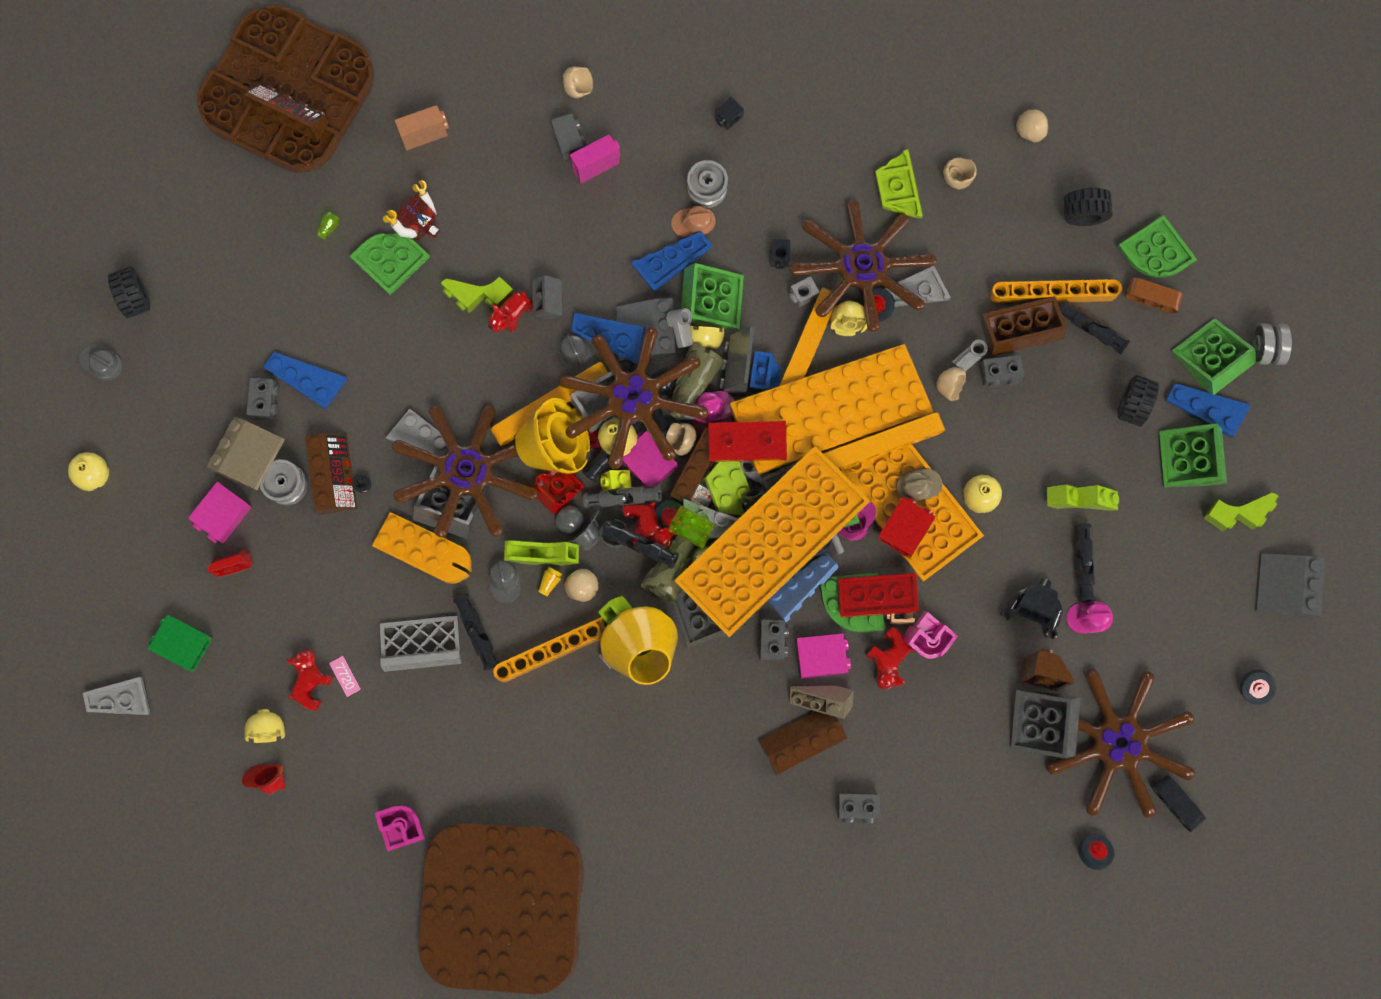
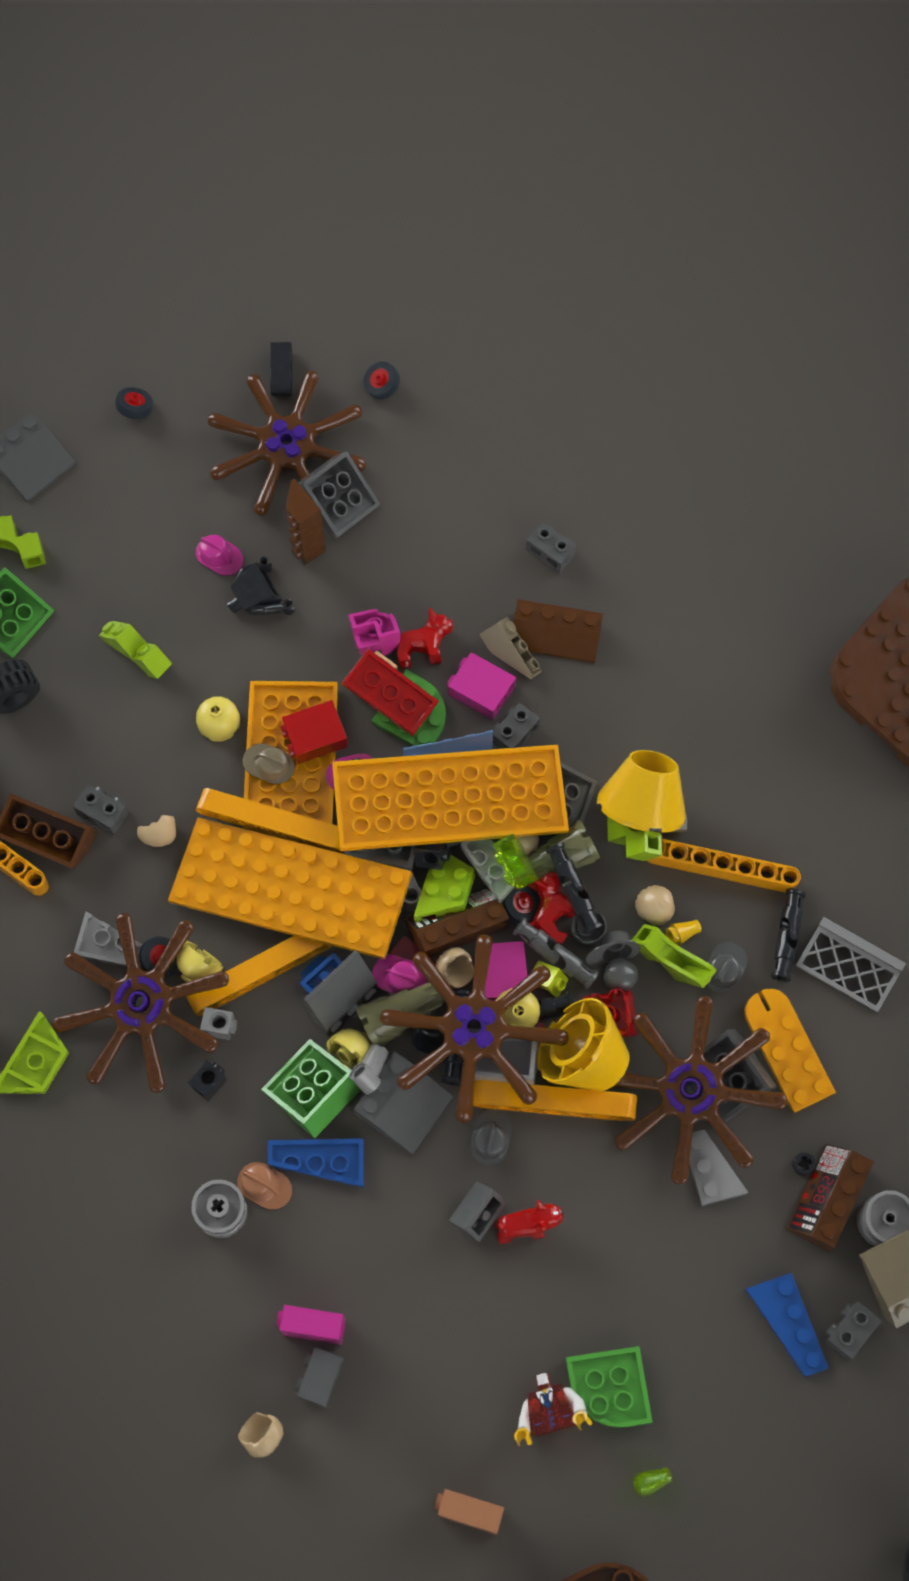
camera: 140 degrees left, 10 degrees down
(470, 296) = (555, 1277): lime arch -> none
(621, 337) = (436, 1112): blue wing -> none
(729, 114) = (133, 1271): black brick -> none
(747, 441) = (398, 903): red plate -> none
(969, 357) = (120, 844): light grey piece -> none
(1084, 554) = (180, 600): black piece -> none

